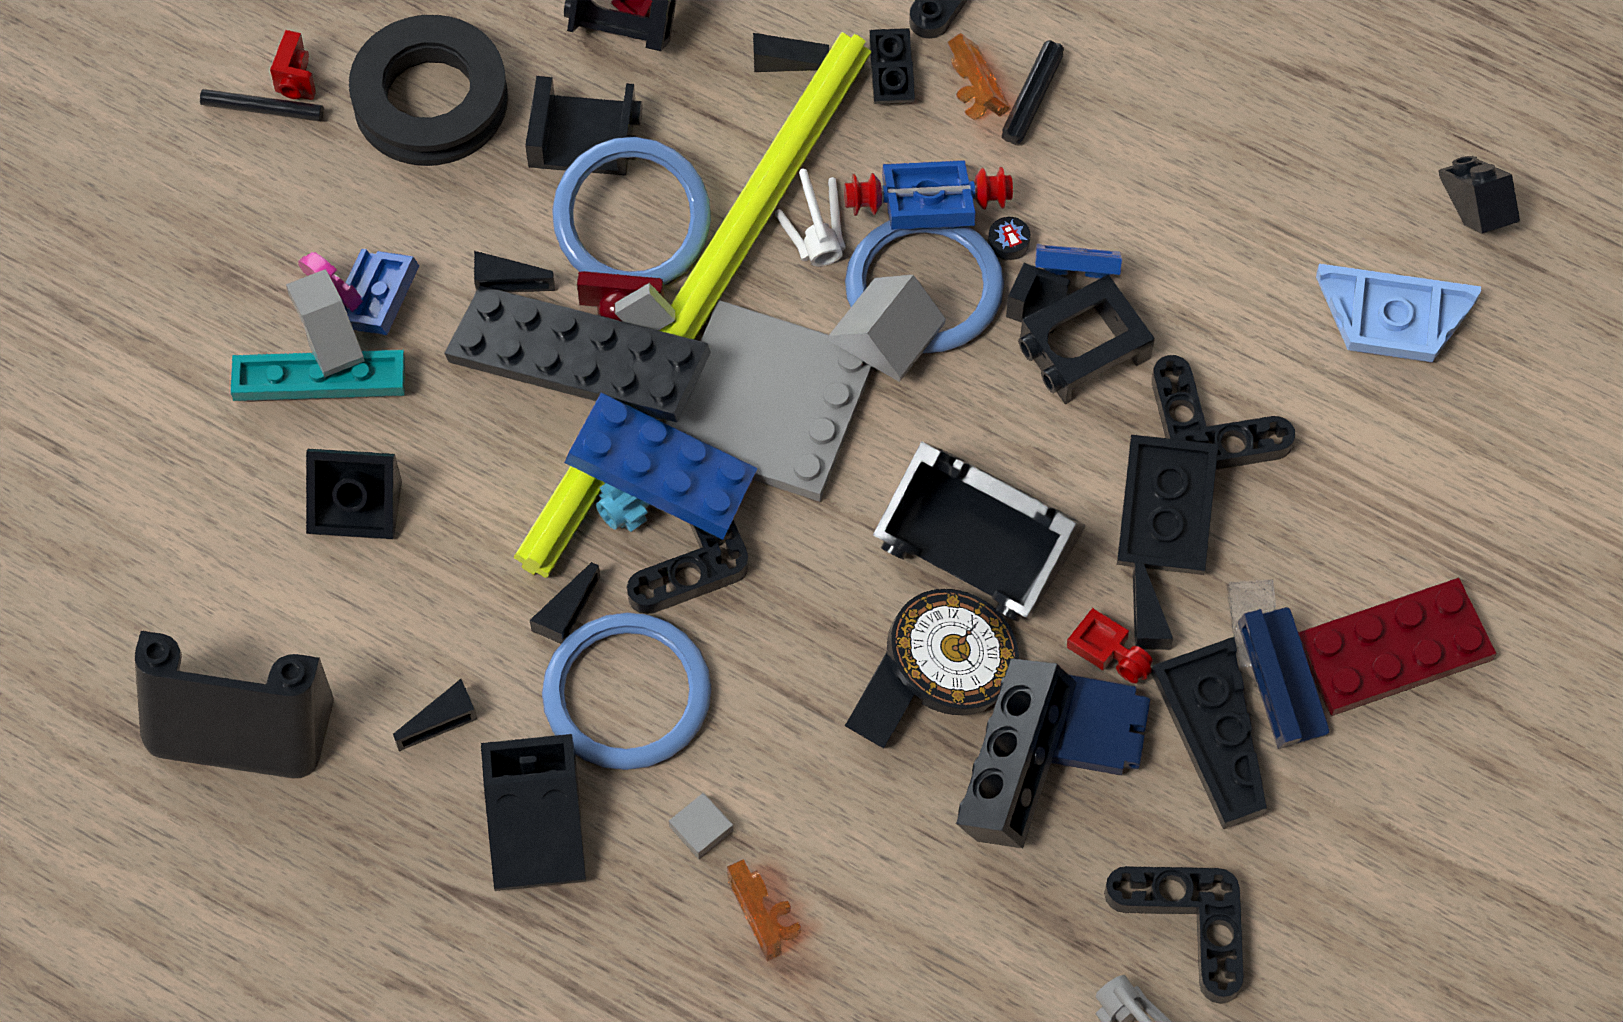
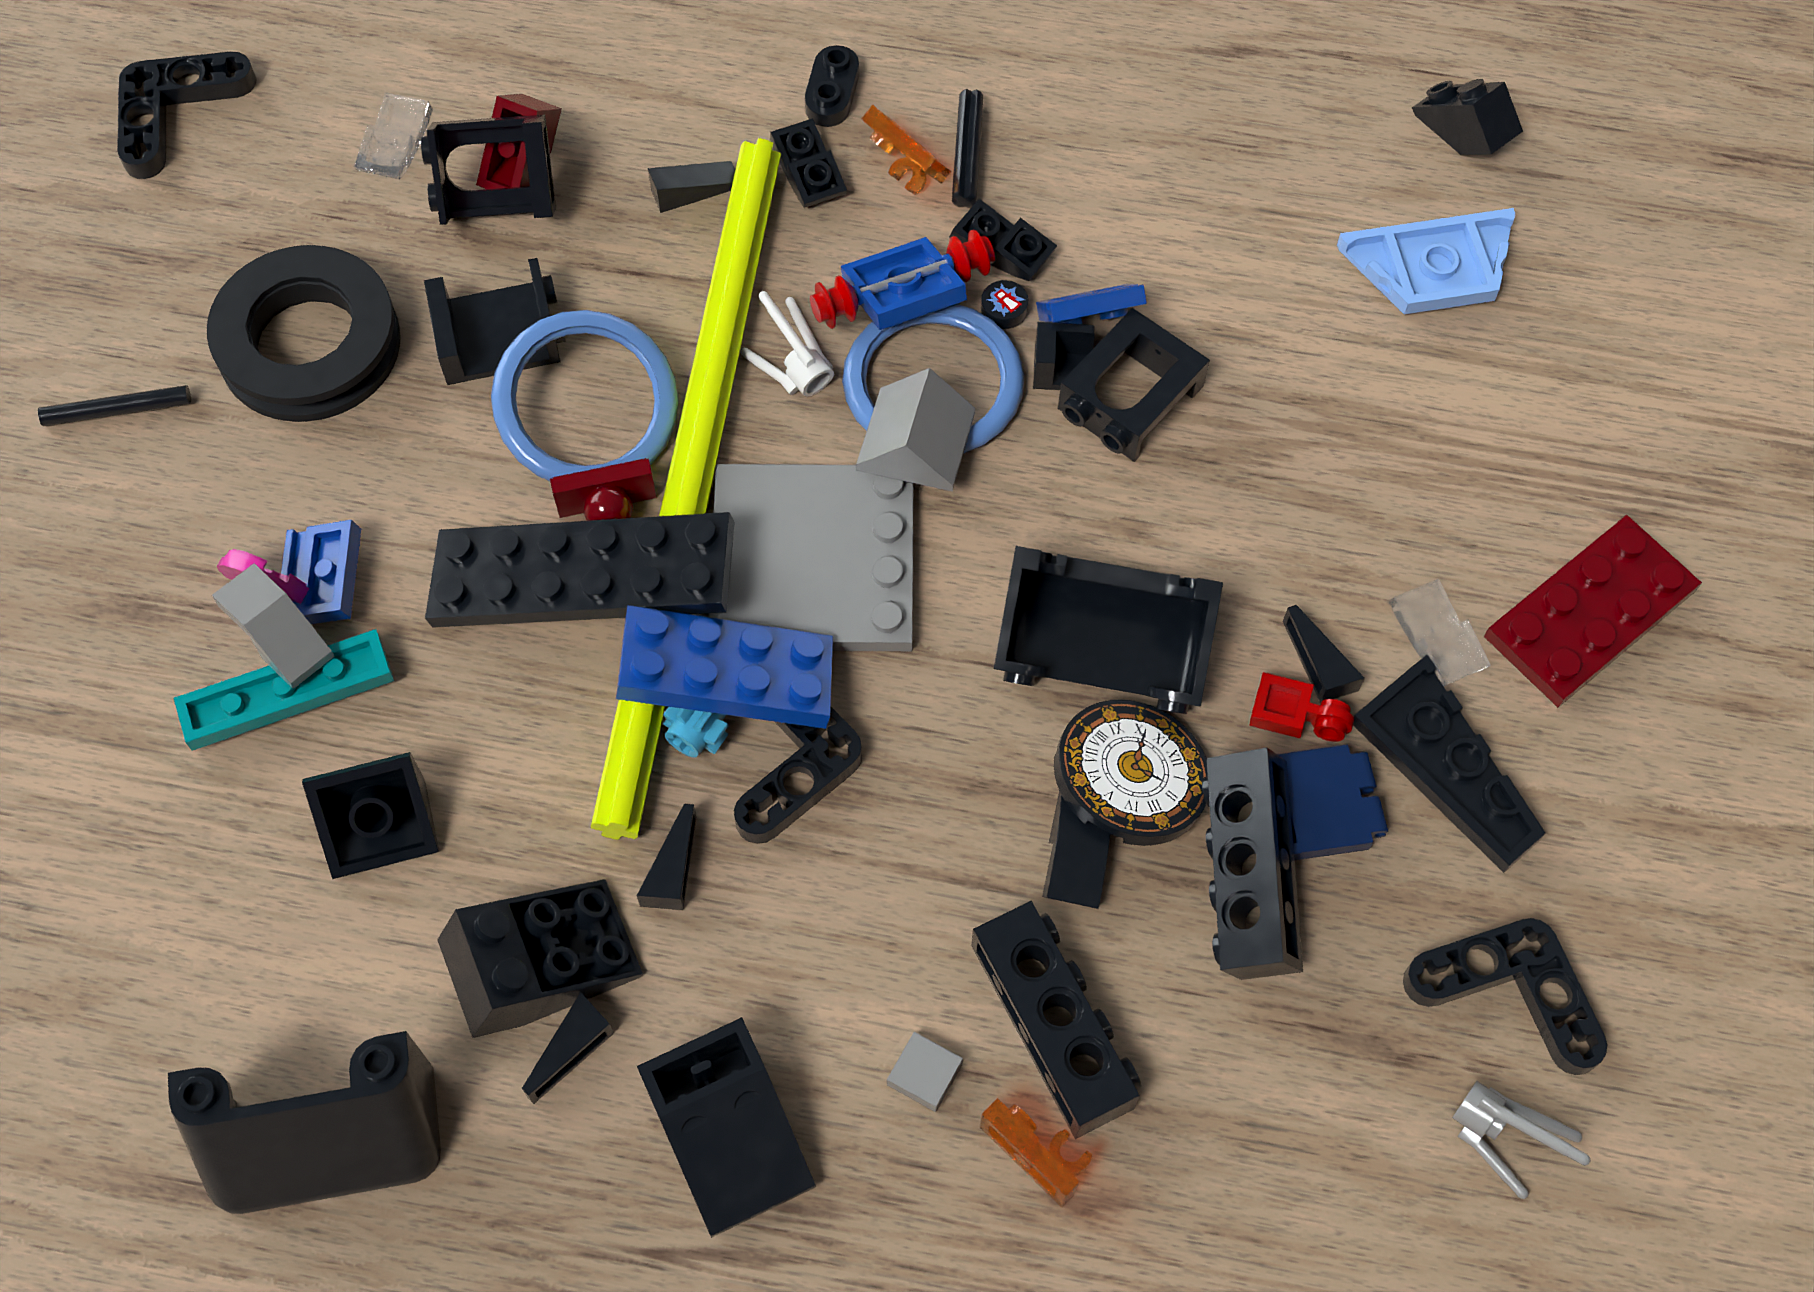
camera: 20 degrees left, 0 degrees up
(290, 68) = (136, 355): red bracket -> none
(438, 637) = (535, 955): none -> black slope
(510, 275) = (470, 507): black piece -> none
(615, 624) = (797, 1023): medium blue wedge -> none
(645, 309) = (642, 496): light grey tile -> none
(816, 887) = (1082, 1100): none -> black brick
(1033, 188) = (1017, 247): none -> black slope
(1167, 504) = (1295, 533): black plate -> none
(1196, 428) = (1289, 448): black beam -> none
(1283, 676) = (1497, 682): dark blue panel -> none

